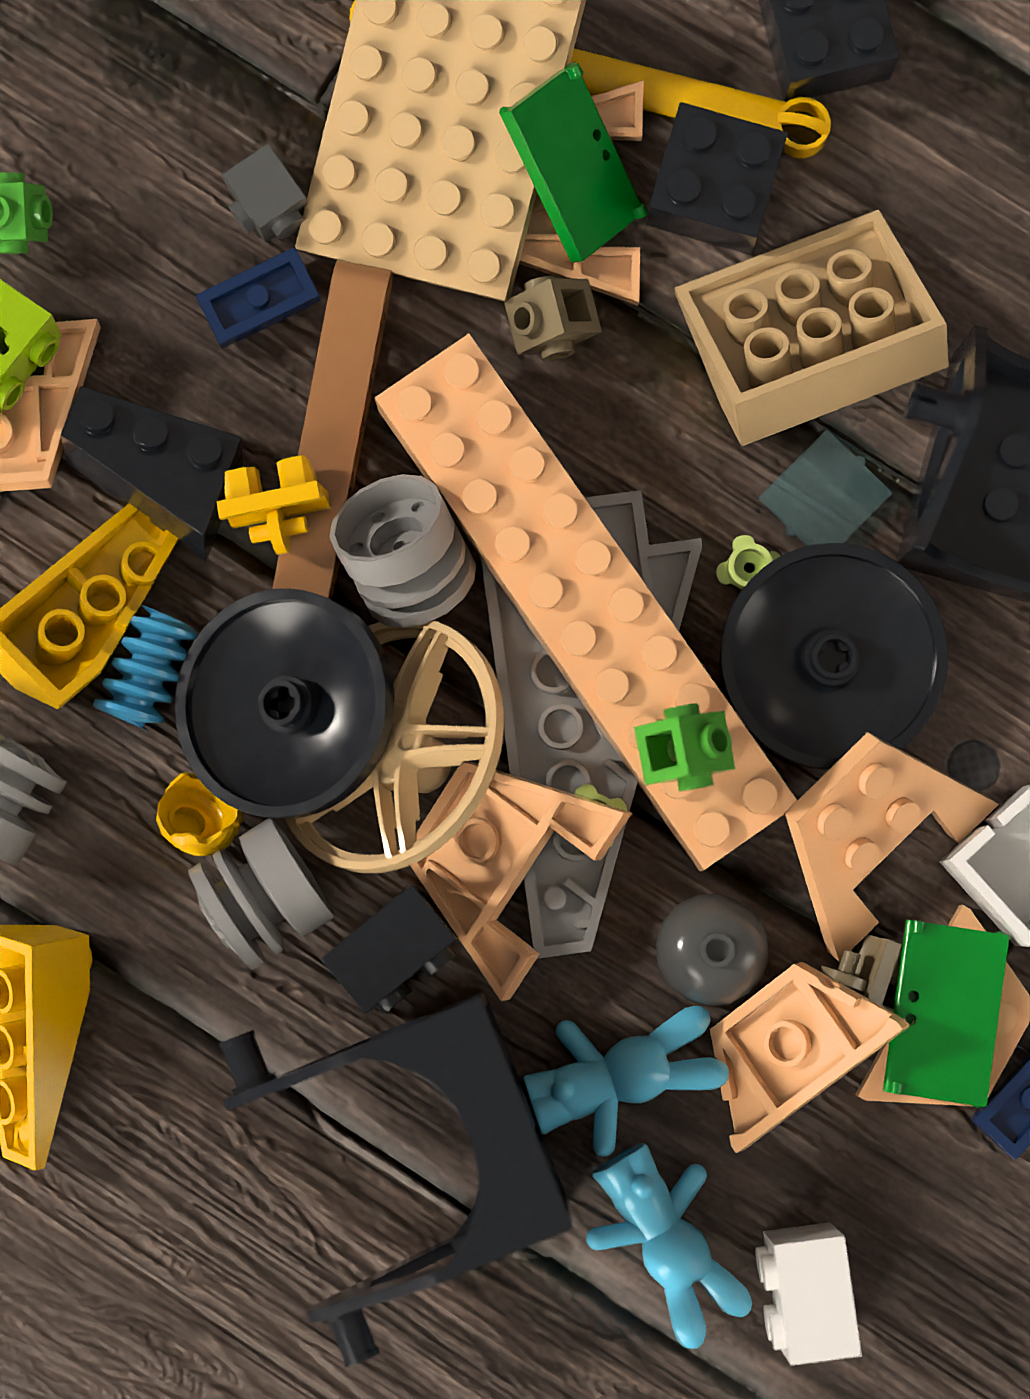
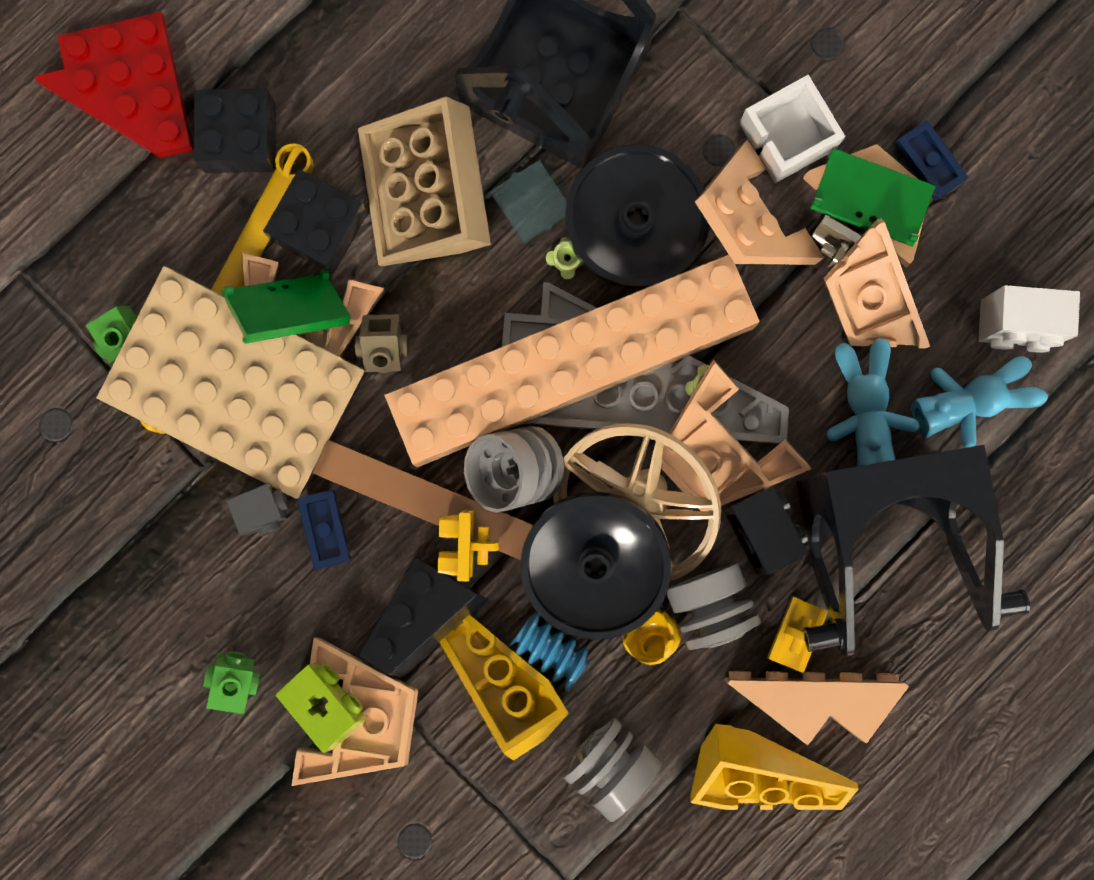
camera: 80 degrees left, 0 degrees up
(148, 1065) = (808, 702): none -> light nougat slope
(275, 1029) = (789, 642): none -> yellow hips
(685, 747) = (686, 312): bright green brick -> none
(712, 949) = (801, 333): dark grey cylinder -> none

